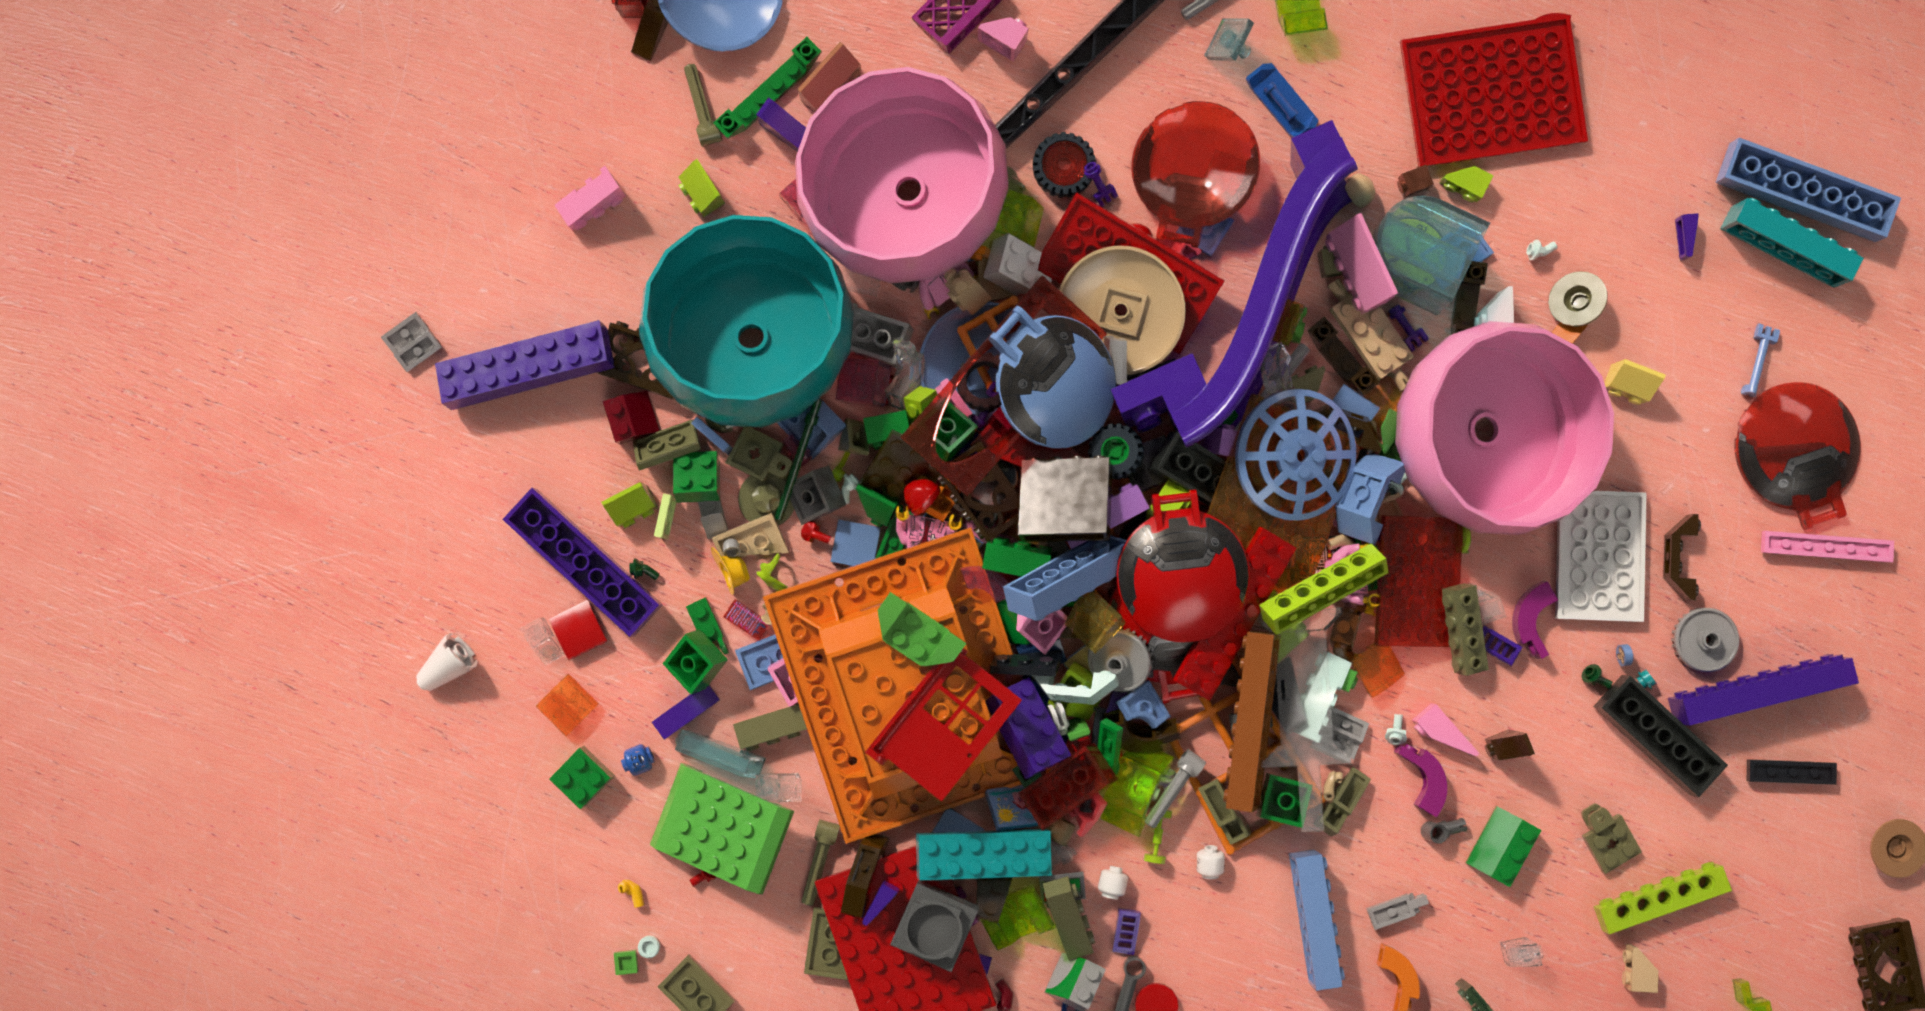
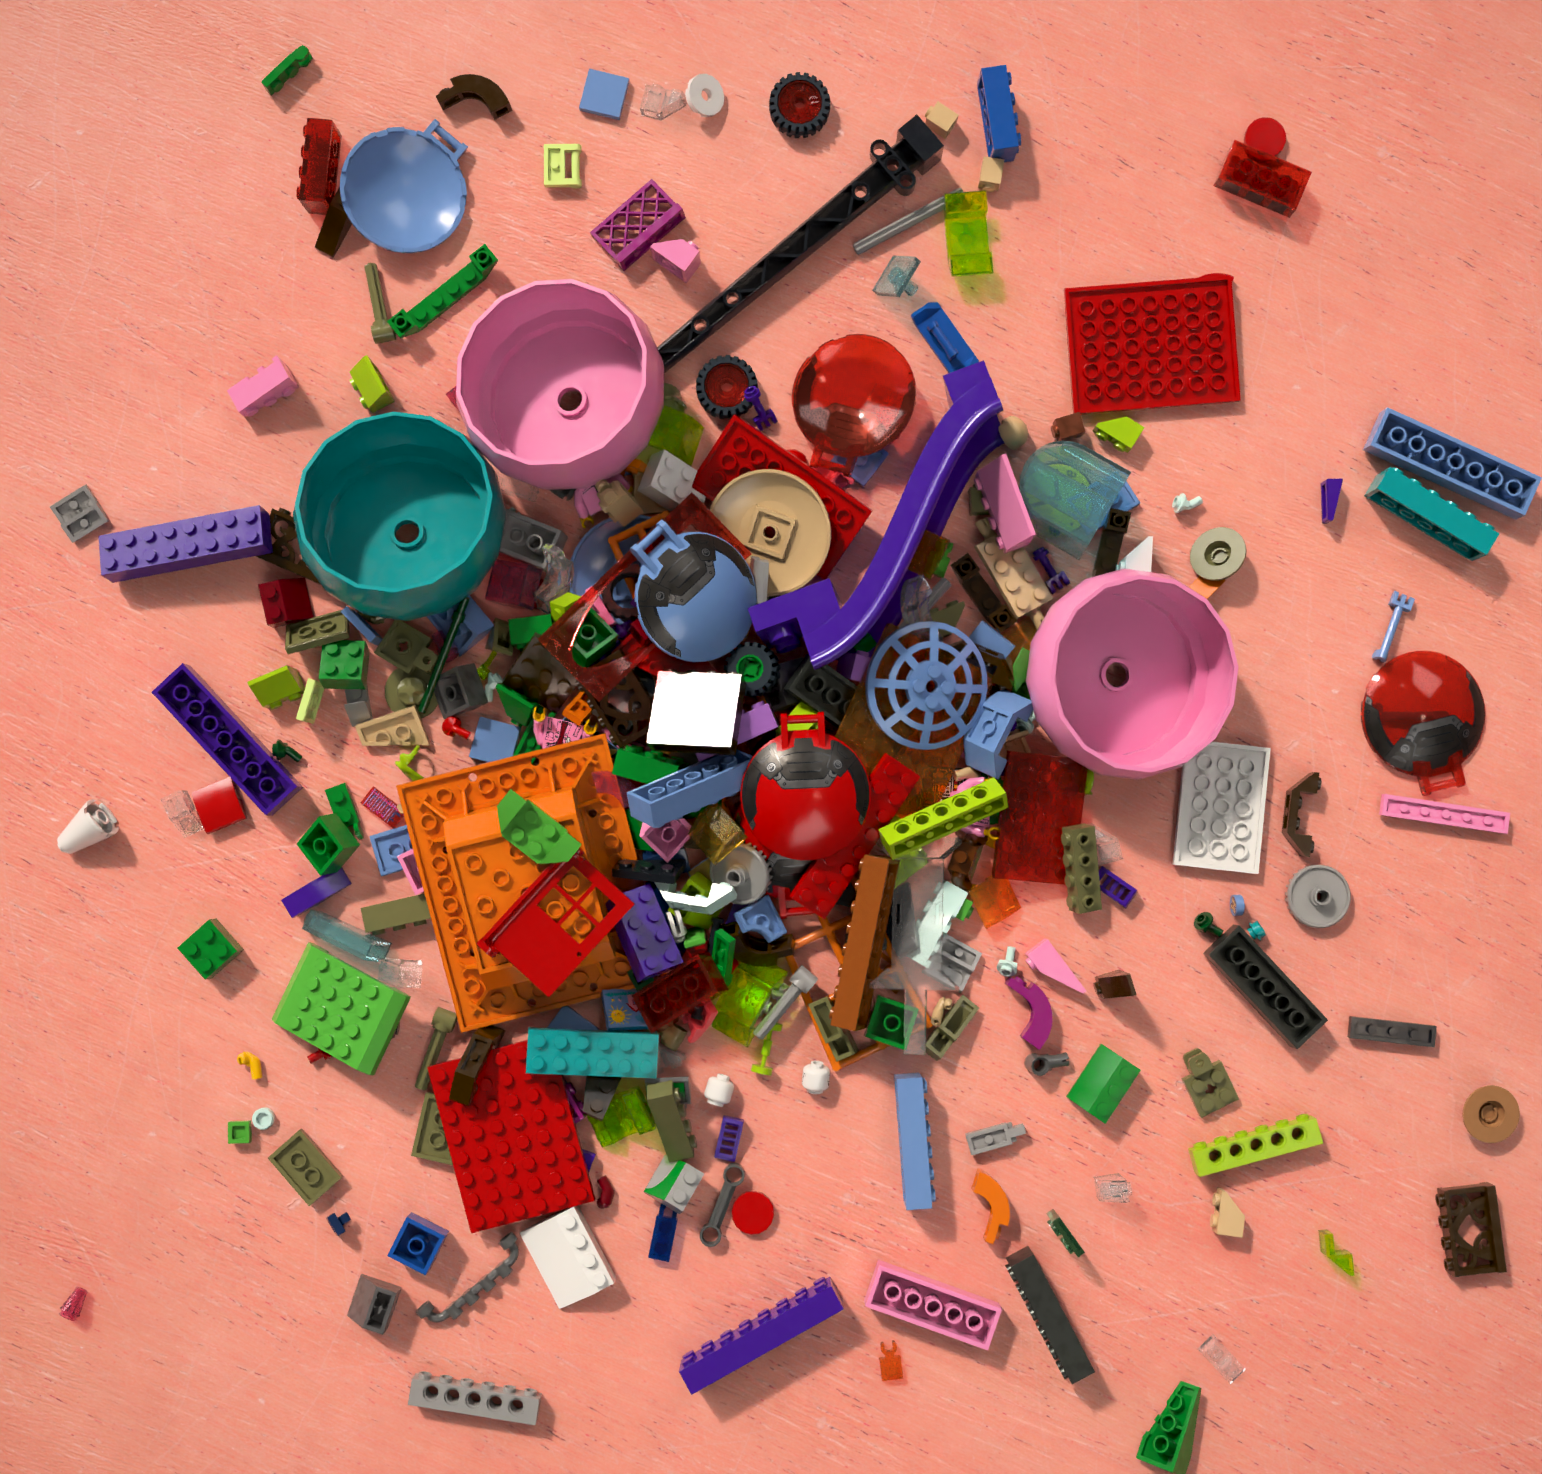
camera: 10 degrees right, 0 degrees up
(567, 705) = (202, 877): clear orange slope -> none
(638, 759) = (266, 936): blue head -> none
(731, 548) = (372, 736): light grey hinge -> none
(733, 570) = (373, 757): yellow piece -> none
(781, 124) = (449, 324): dark purple slope -> none
(832, 73) = (506, 278): nougat slope -> none
(883, 897) = (491, 1086): dark purple slope -> none
(920, 495) = (558, 698): red hat -> none
(935, 925) = (538, 1118): dark grey container -> none
(1526, 614) = (1143, 858): magenta arch -> none
(1633, 381) = (1265, 638): light yellow slope -> none
(1763, 689) = (1369, 949): dark purple brick -> none

